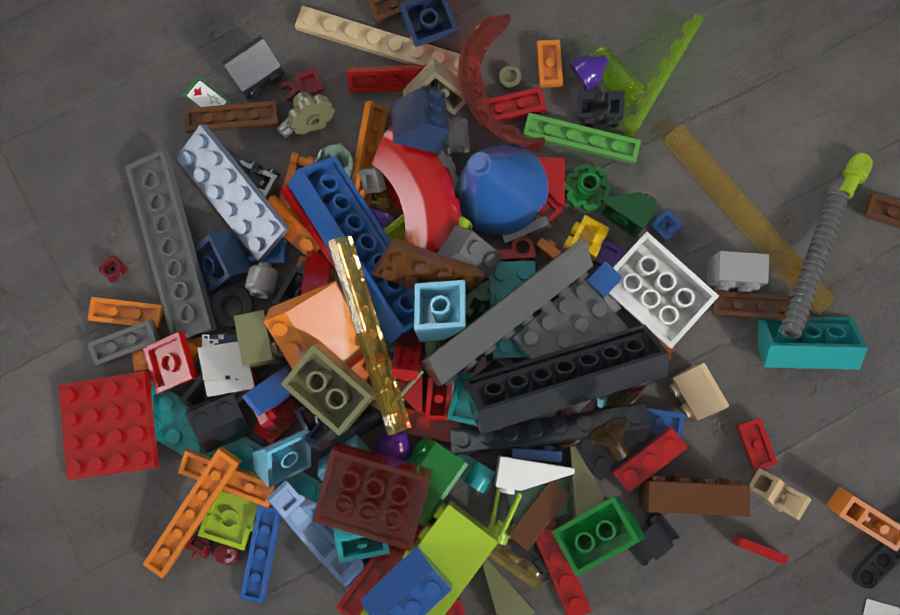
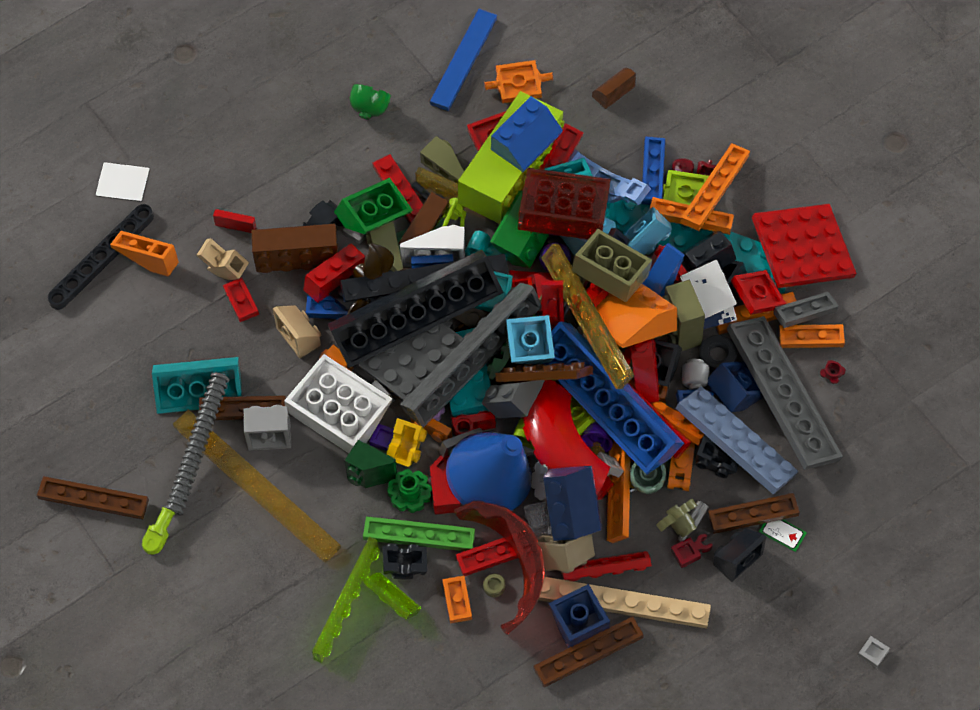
camera: 175 degrees right, 20 degrees down
(589, 70) = (419, 589): dark purple helmet -> none
(604, 279) = (387, 399): blue slope -> none
(666, 225) = (331, 467): blue tile -> none

